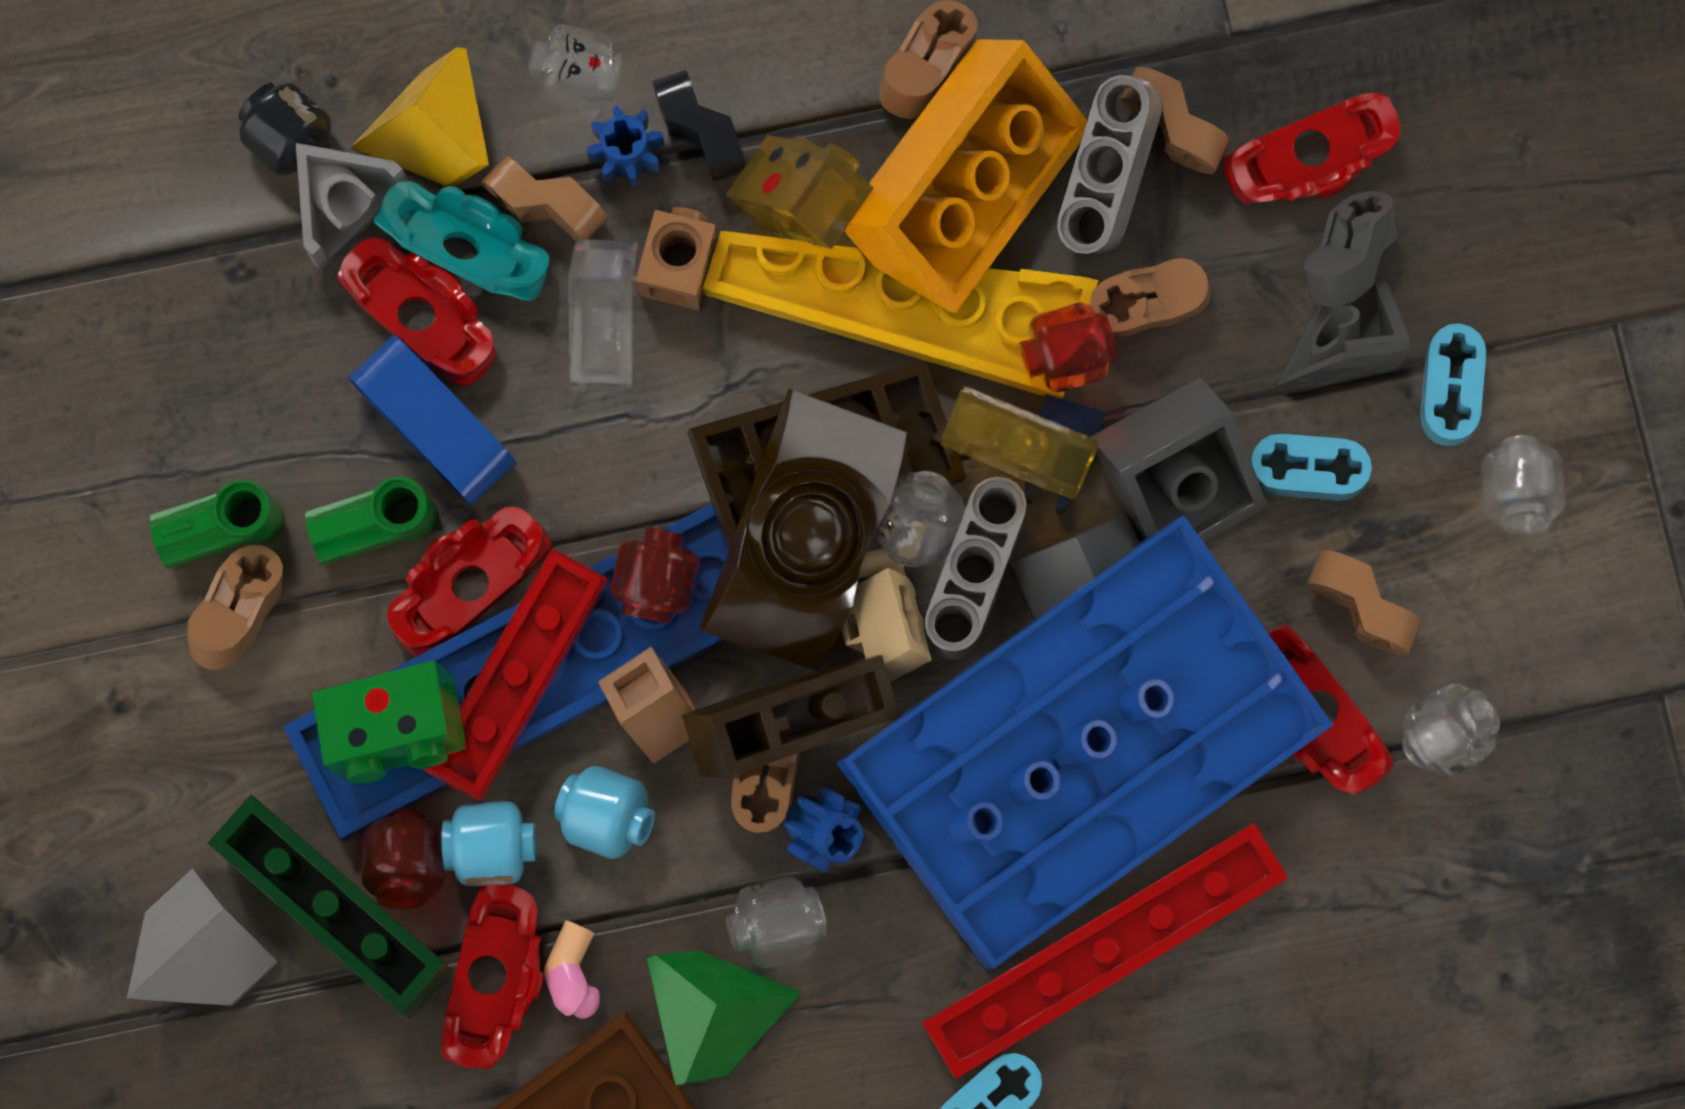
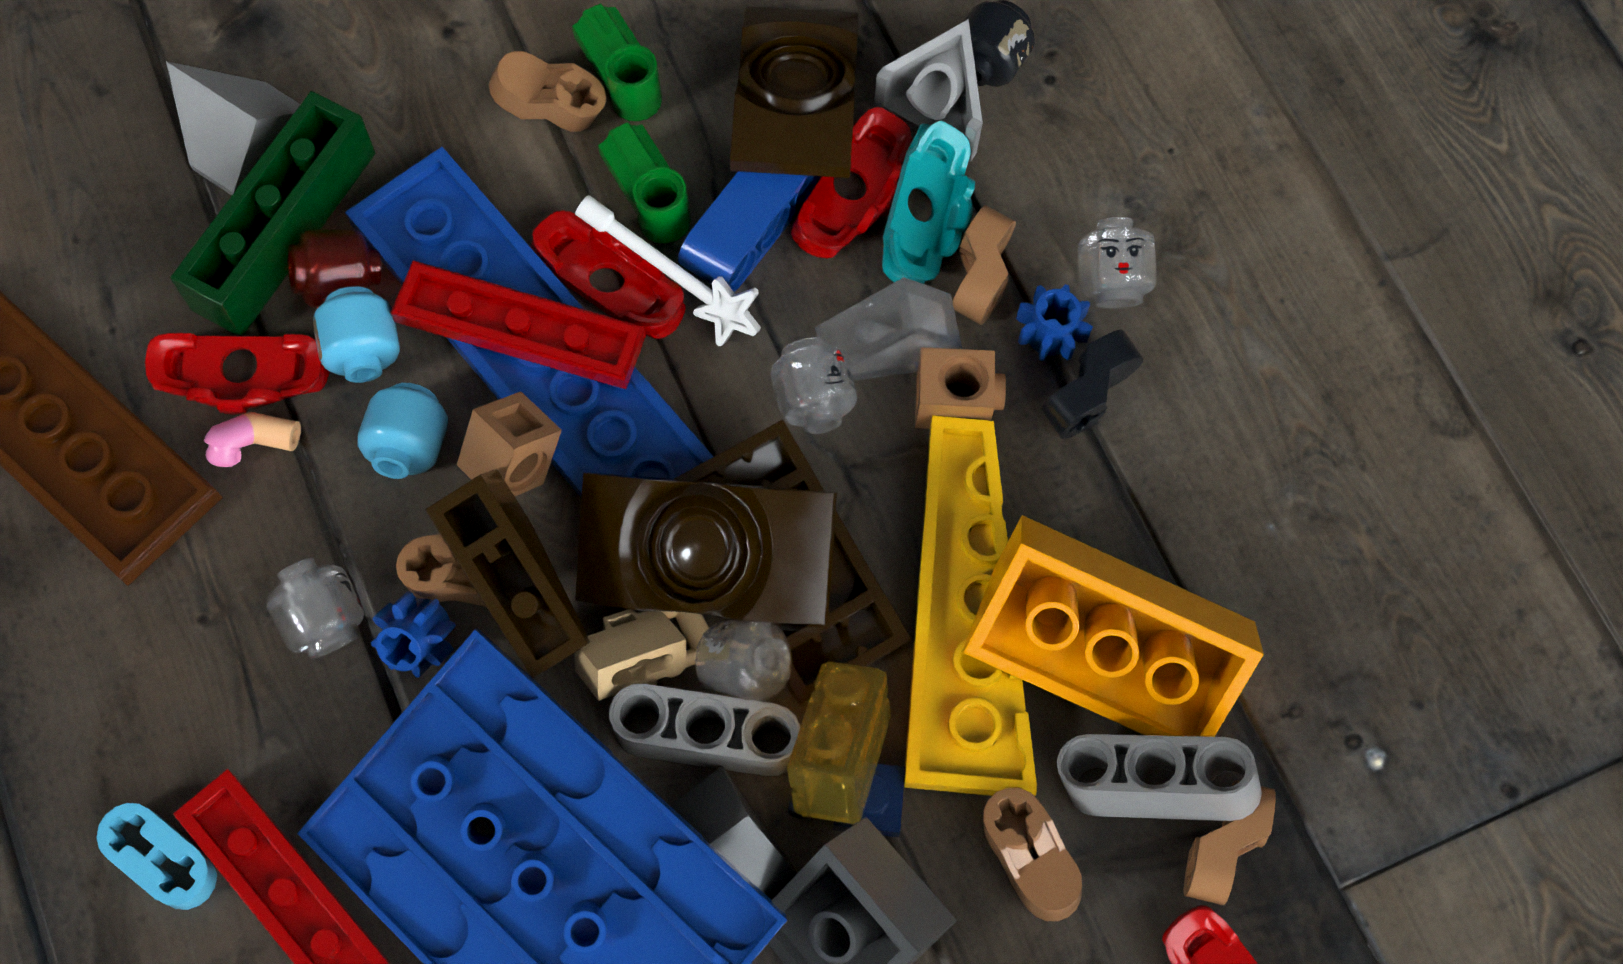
camera: 70 degrees right, 10 degrees down
(302, 341) = (795, 92): none -> dark brown slope
(389, 722) = (446, 215): green brick -> none
(432, 125) = (1030, 156): yellow slope -> none
(534, 470) = (721, 305): none -> white piece
(645, 395) = (813, 385): none -> clear head
(655, 575) = (631, 419): clear red head -> none
(712, 1012) = (222, 567): green slope -> none
(801, 189) = (1050, 478): clear yellow brick -> none
(943, 35) = (1225, 578): medium nougat piece -> none
(1069, 347) = (951, 770): clear red head -> none

